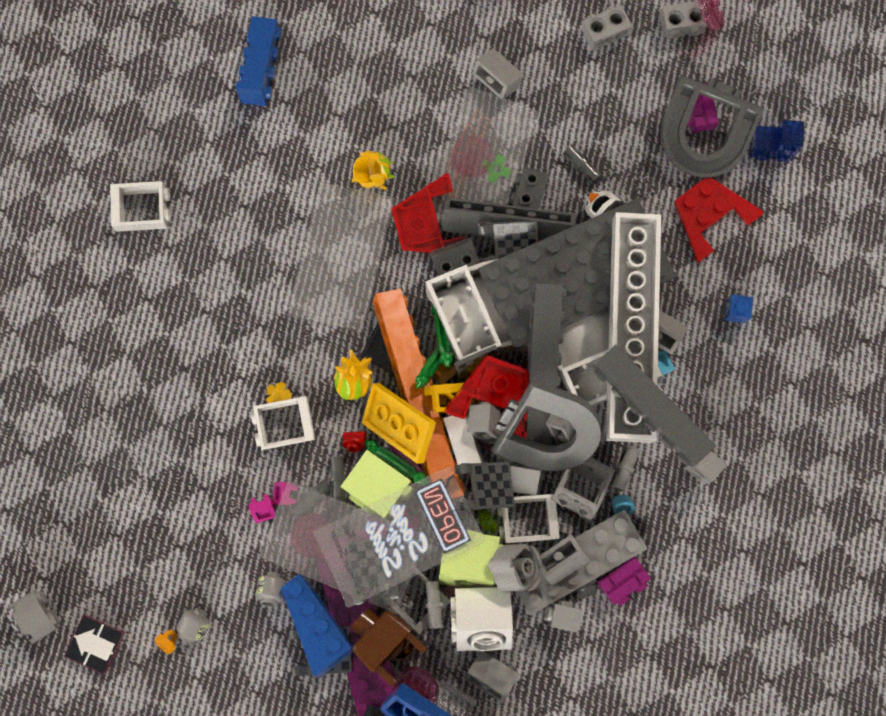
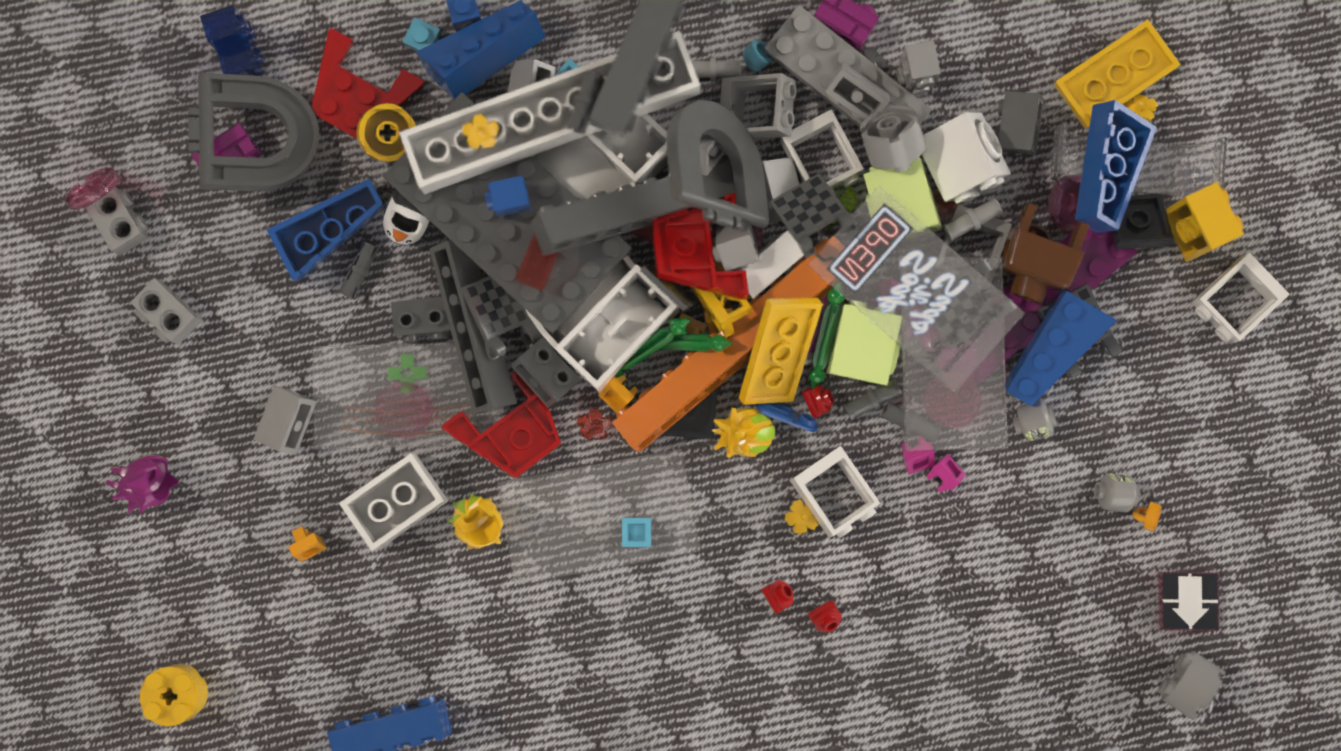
camera: 105 degrees left, 5 degrees up
(202, 381) = (826, 617): none -> red plate
(231, 355) = (778, 595): none -> red plate
(318, 275) = (636, 532): none -> medium azure plate
(352, 414) = (787, 415): none -> blue piece
(405, 278) = (594, 424): none -> clear red plant
(408, 56) = (306, 544): none -> light orange tile
(410, 122) = (393, 502): none -> white brick
(419, 301) = (616, 394): none -> light orange tile
(525, 271) = (536, 267): none -> clear red plate
(586, 274) = (508, 196): none -> blue brick
(620, 150) = (322, 229): none -> blue wedge
(630, 349) = (585, 102): none -> dark grey pin
(637, 268) = (480, 132): none -> yellow plant
(681, 211) = (373, 121): none -> yellow brick
(705, 308) = (481, 49): none -> blue wedge
(732, 273) = (421, 35): none -> medium azure plate

